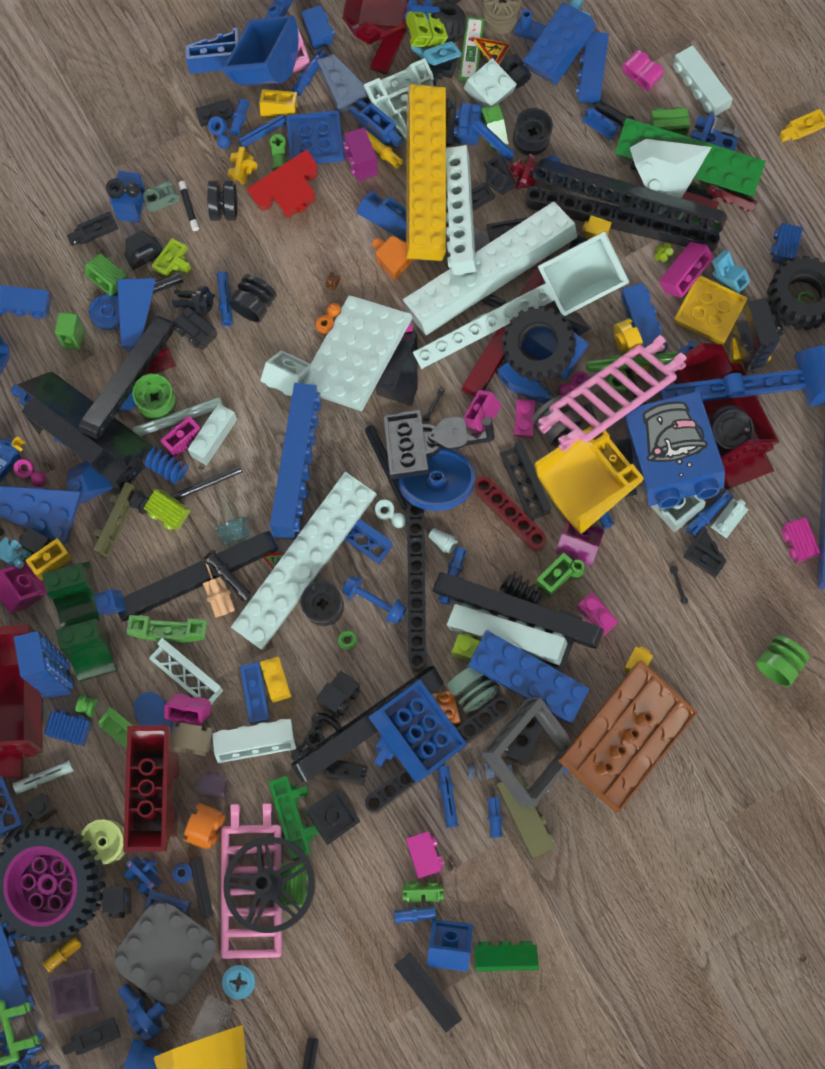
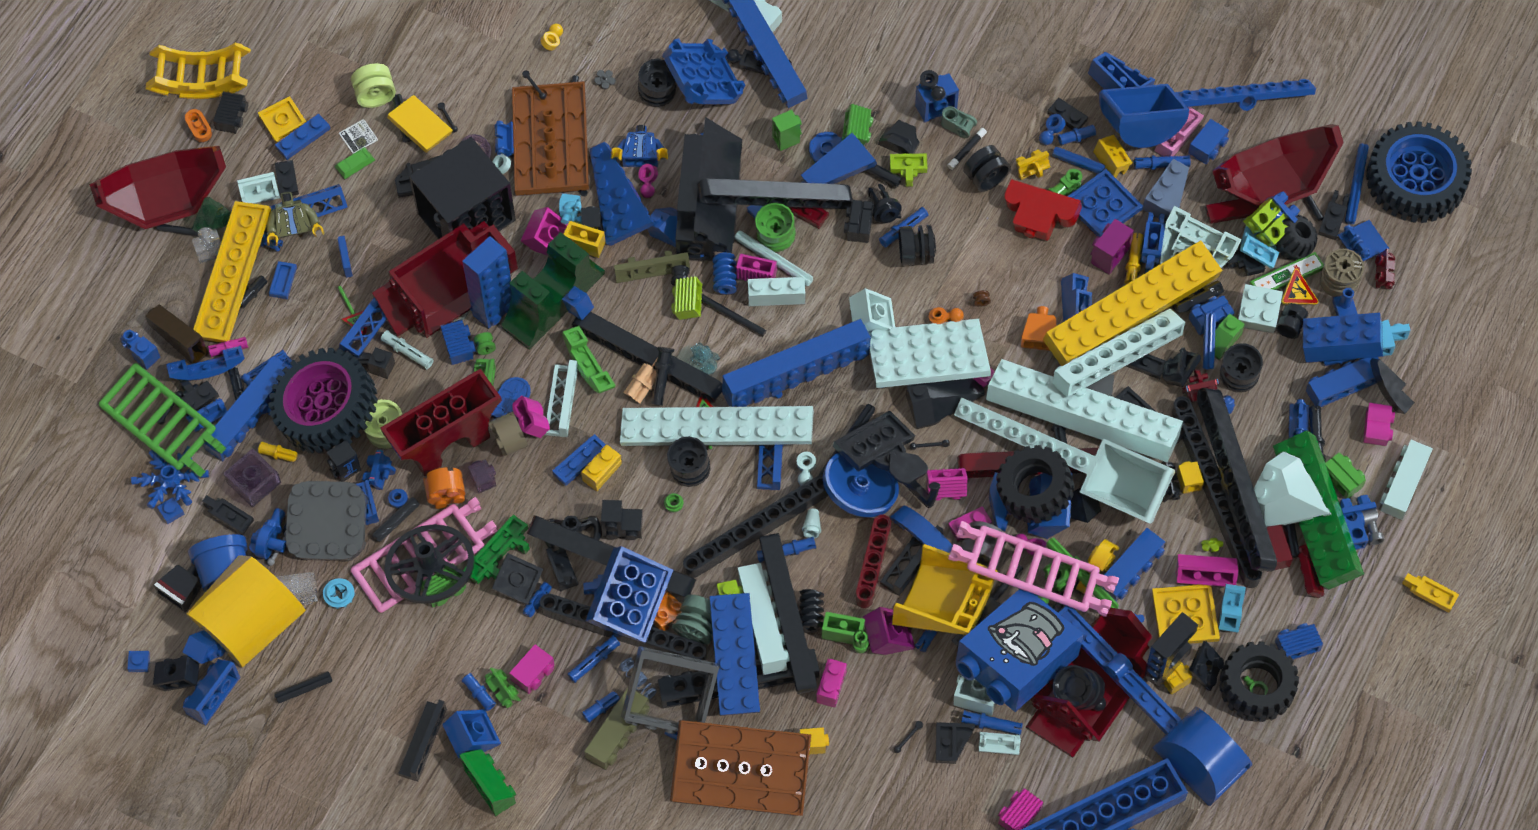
camera: 55 degrees right, 10 degrees down
(93, 229) = (890, 91): black hinge -> none
(253, 740) = (539, 482): light aqua brick -> none
(353, 587) = (720, 478): blue piece -> none
(360, 810) = (534, 603): none -> blue axle
(510, 458) = (920, 528): none -> blue slope
(623, 38) = (1391, 386): none -> black slope

